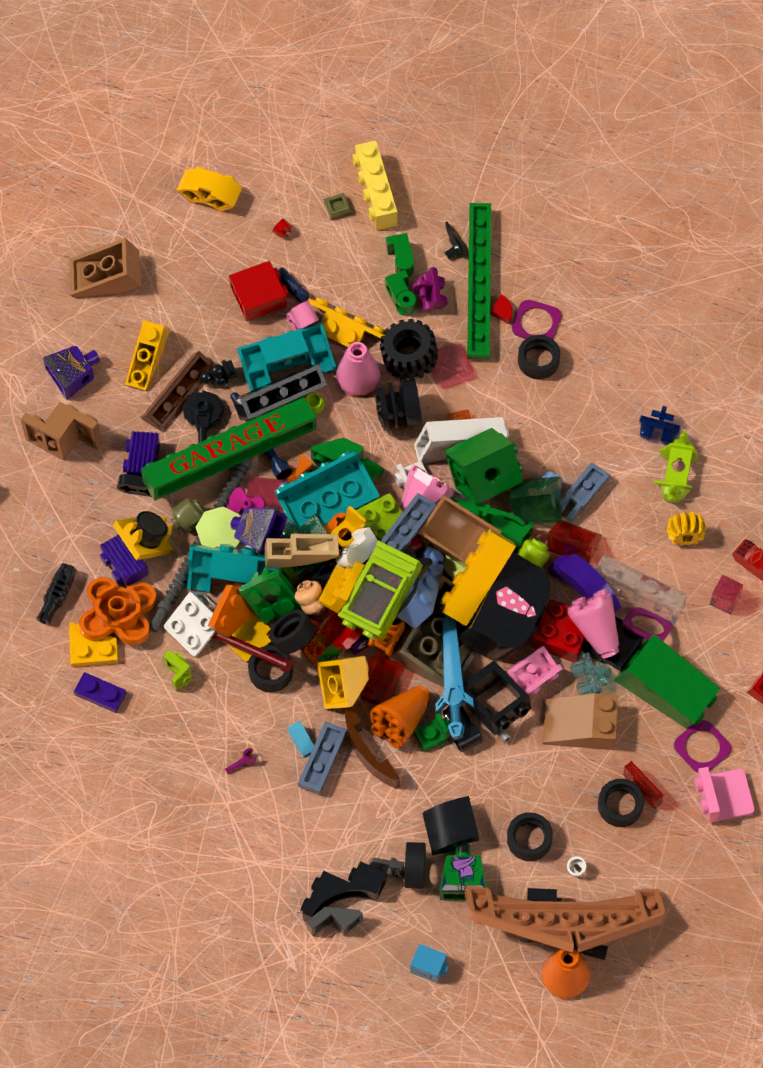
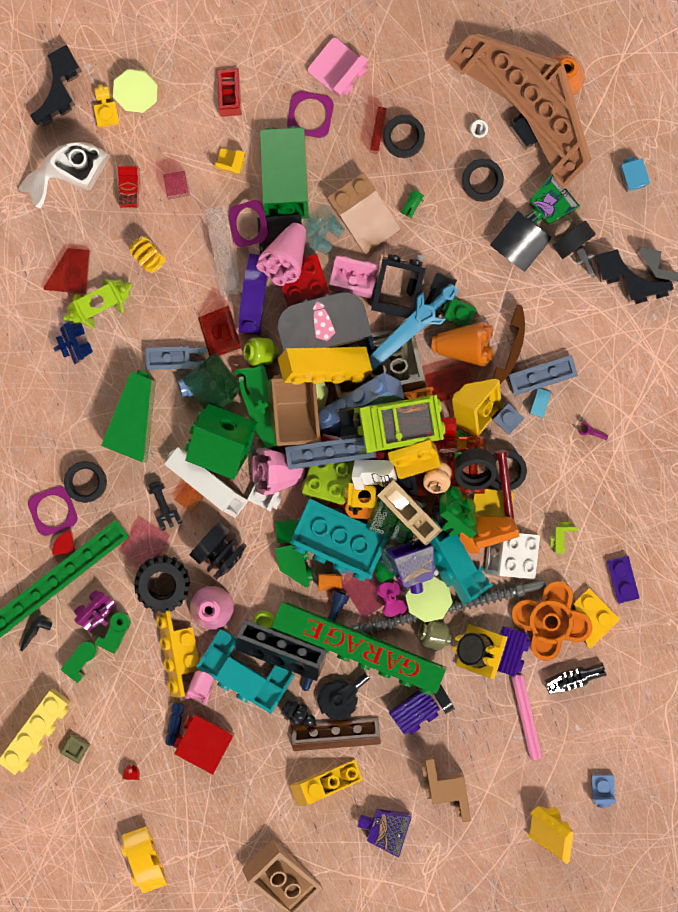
camera: 130 degrees left, 25 degrees up
(60, 536) = (526, 717): none -> bright pink axle
(310, 700) = (508, 419): none -> sand blue brick
(458, 395) = (156, 489): none -> black hinge
(557, 766) = (412, 203): none -> green pin
(558, 420) = (132, 419): none -> green slope
(711, 651) = (230, 161): none -> yellow panel
(719, 468) = (70, 273): none -> clear red wing

